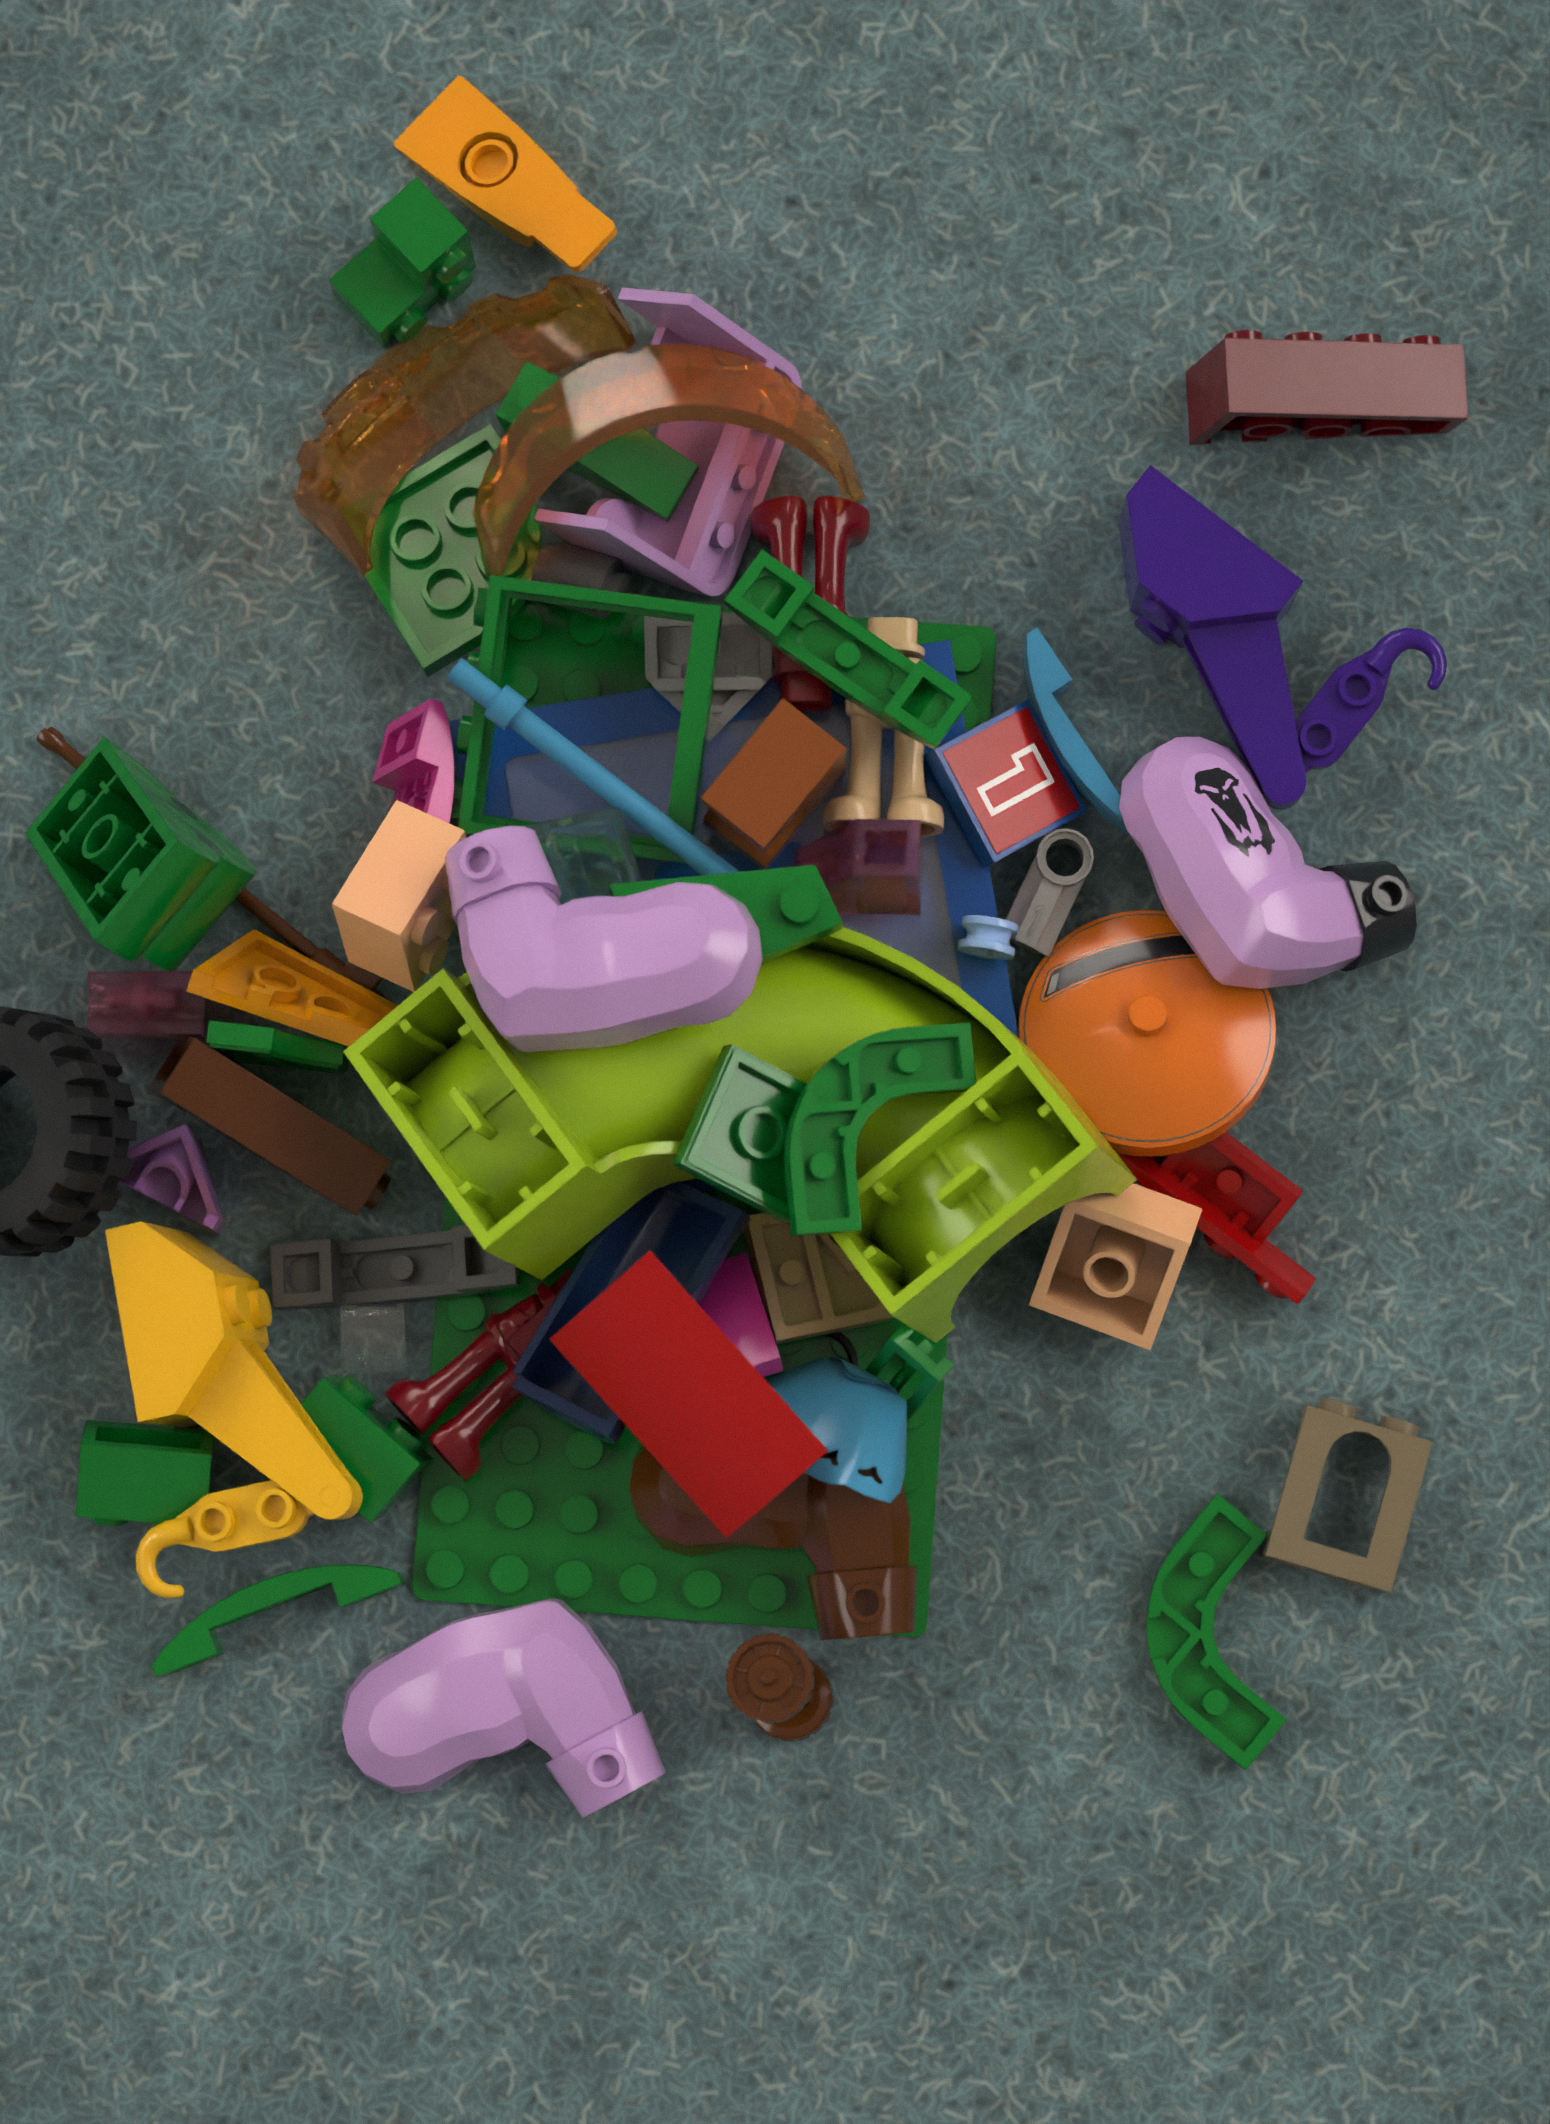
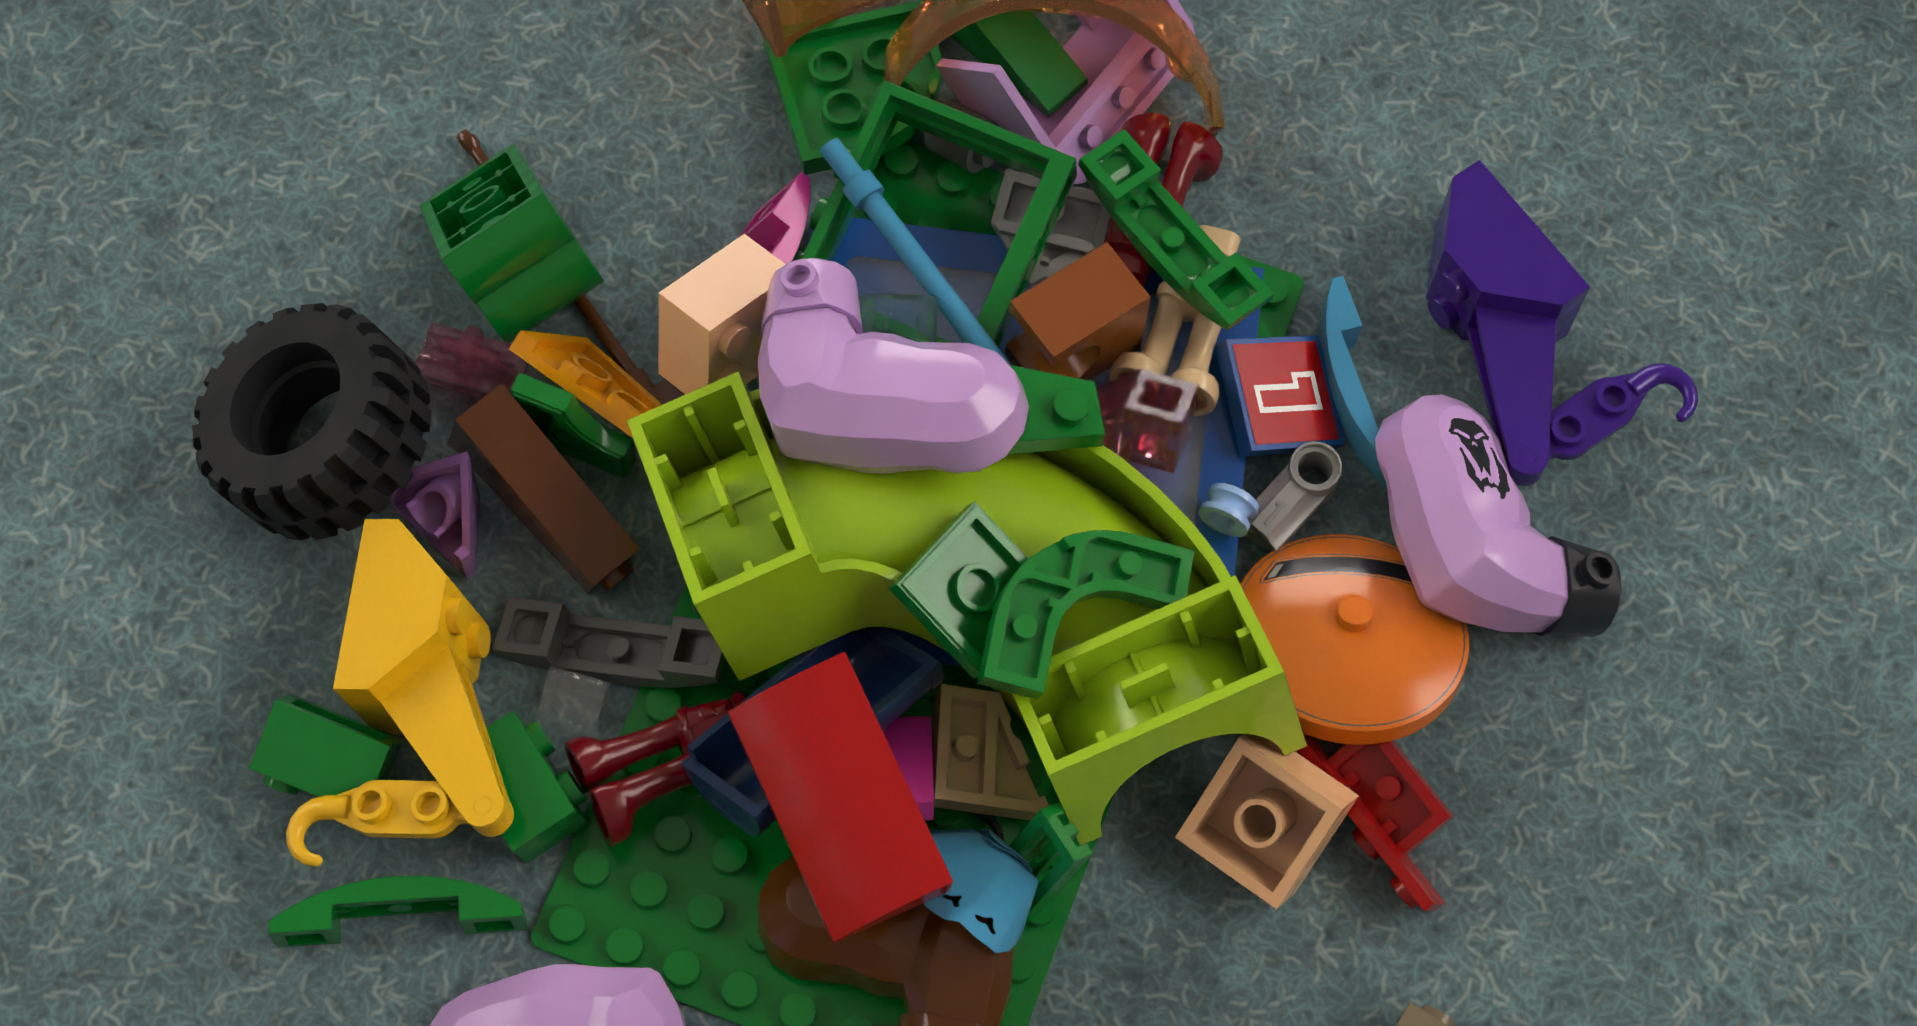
camera: 10 degrees right, 15 degrees down
(1326, 387) = (1643, 160): wedge -> none

